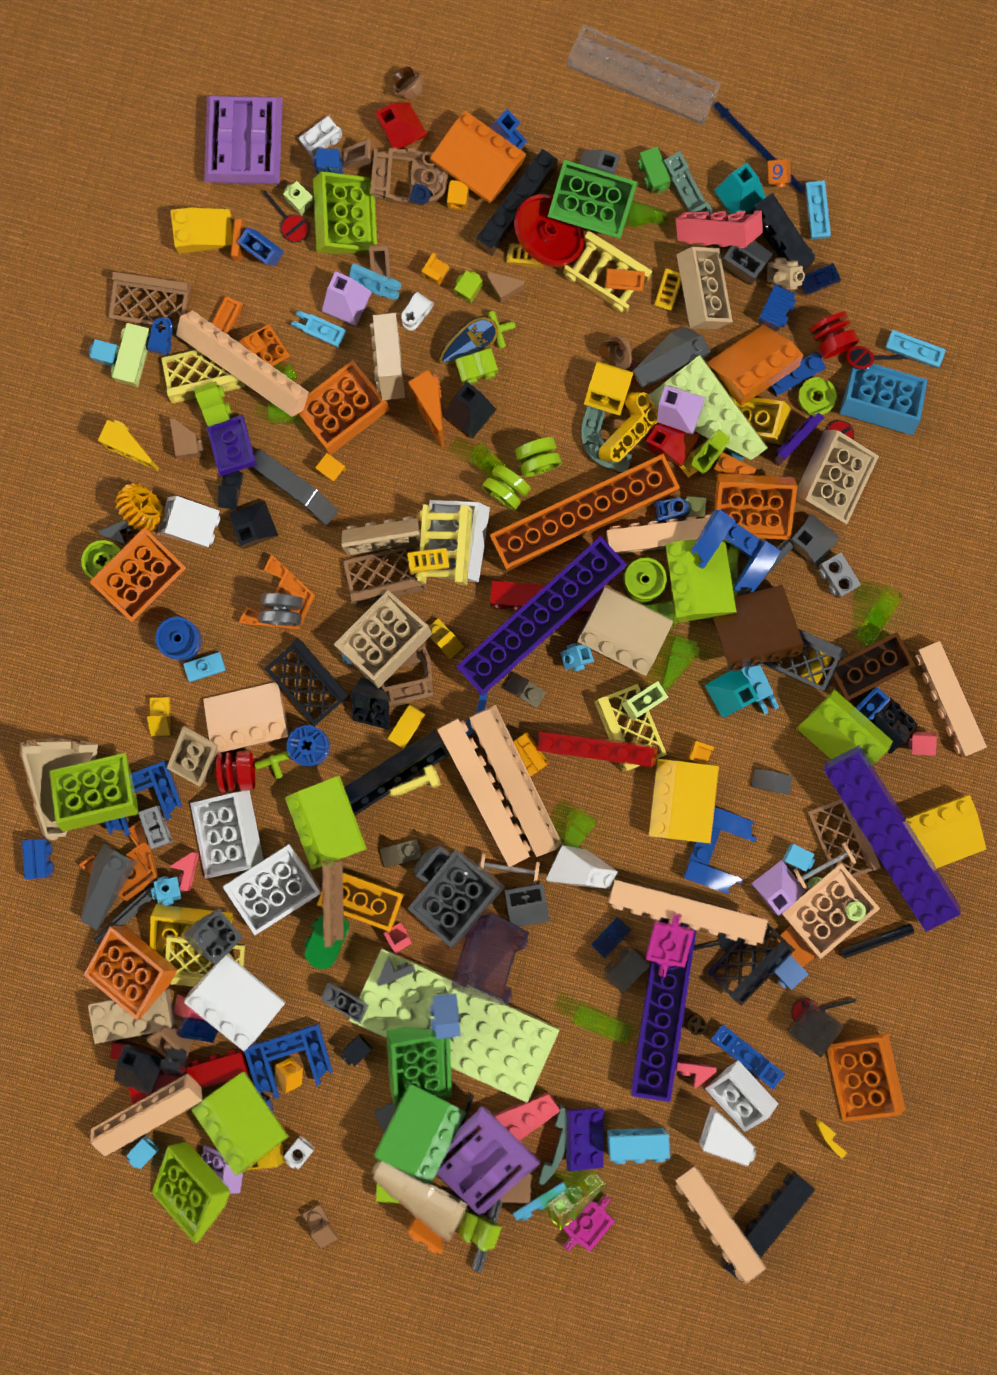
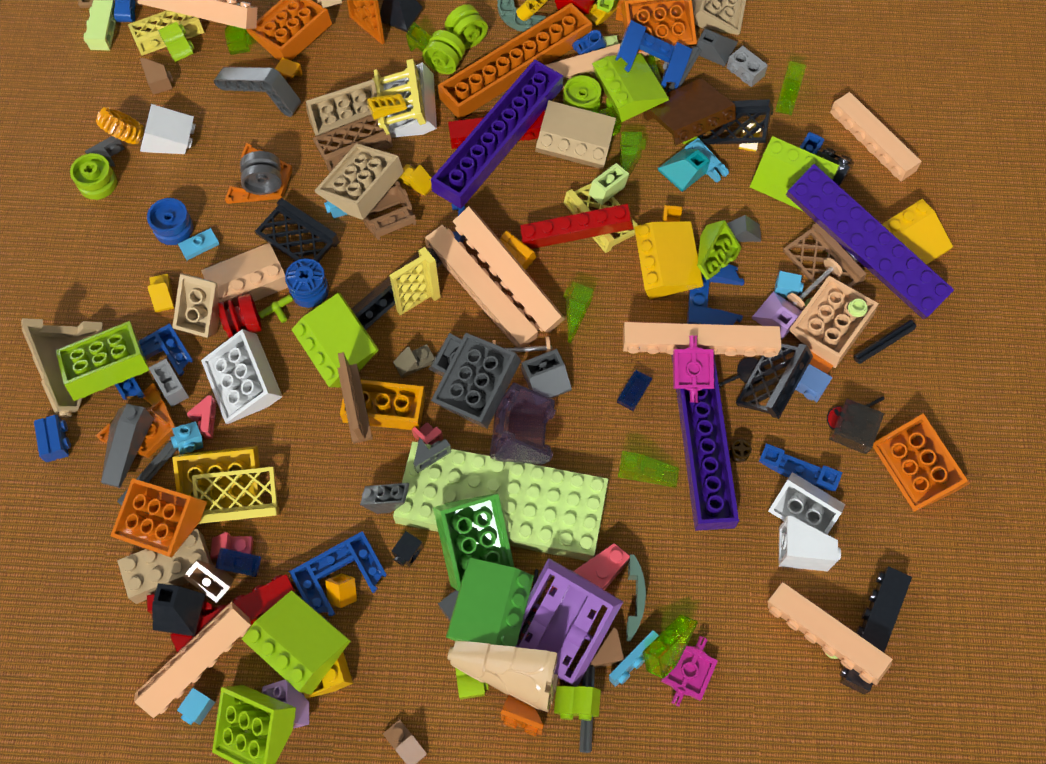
camera: 15 degrees left, 20 degrees down
(103, 352) = (75, 27): medium azure brick -> none
(121, 441) = (102, 84): yellow slope -> none
(137, 574) = (124, 174): orange slope -> none
(174, 1063) = (215, 595): black slope -> none
(213, 936) = (238, 459): dark grey slope -> none
(230, 490) = (201, 105): black slope -> none
(231, 445) = (197, 69): dark purple plate -> none
(234, 1002) = (271, 523): white slope -> none
(253, 525) = (227, 126): black slope -> none
(272, 889) = (293, 410): white slope -> none
(303, 1145) = (366, 658): white brick -> none
(316, 952) = (355, 459): green brick -> none
(370, 704) = (359, 239): black slope -> none
(406, 726) = (396, 252): yellow slope -> none
(446, 1016) = (490, 479): medium blue brick -> none
(525, 690) = (497, 204): dark tan slope -> none
(576, 657) = (538, 165): medium azure brick -> none
(581, 868) = (590, 328): white slope -> none
(585, 1139) = (663, 583): dark purple plate -> none
(625, 969) = (657, 410): clear smoke brick -> none
(638, 1145) = (719, 573): medium azure brick -> none
(701, 1071) = (756, 491): coral slope -> none
(737, 800) = (716, 248): none -> lime wedge
(828, 1134) = (902, 524): yellow slope -> none
(871, 666) = (802, 116): reddish brown brick -> none
(923, 743) = (865, 171): coral brick -> none

